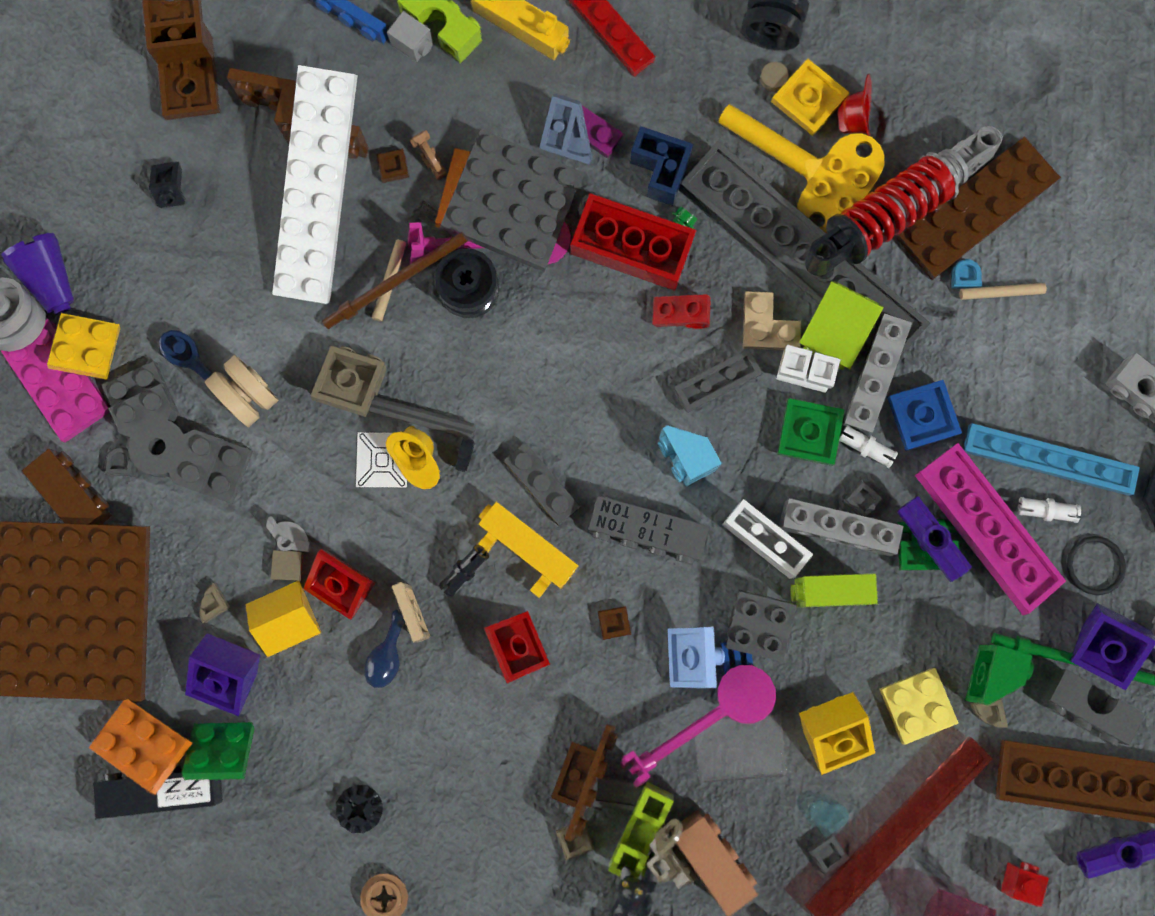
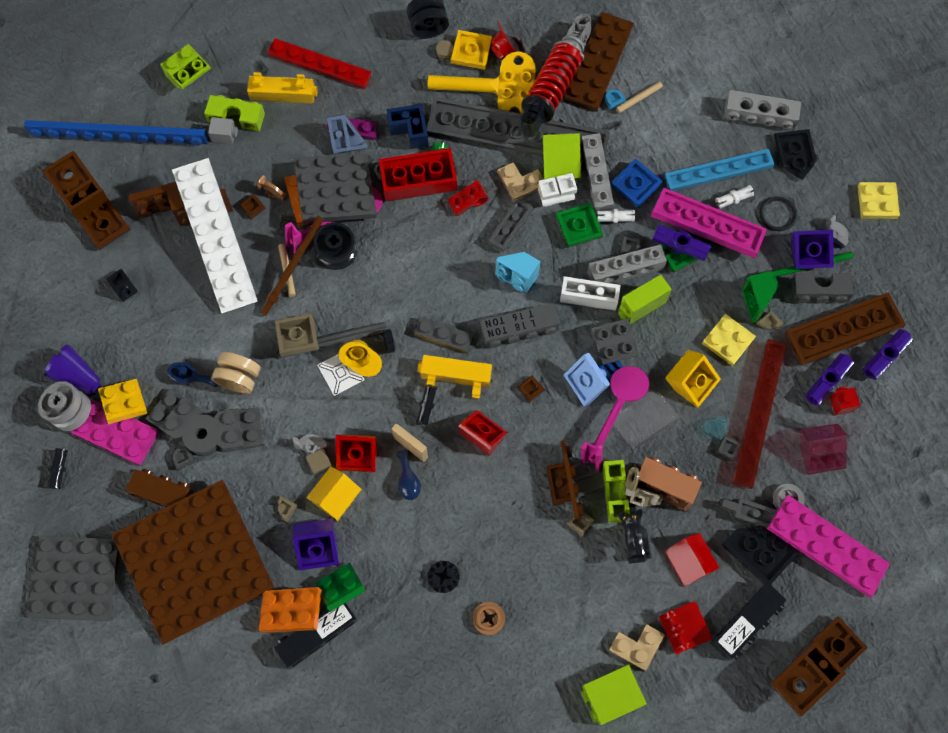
camera: 30 degrees left, 10 degrees down
(1039, 835) = (823, 387): none -> dark purple piece

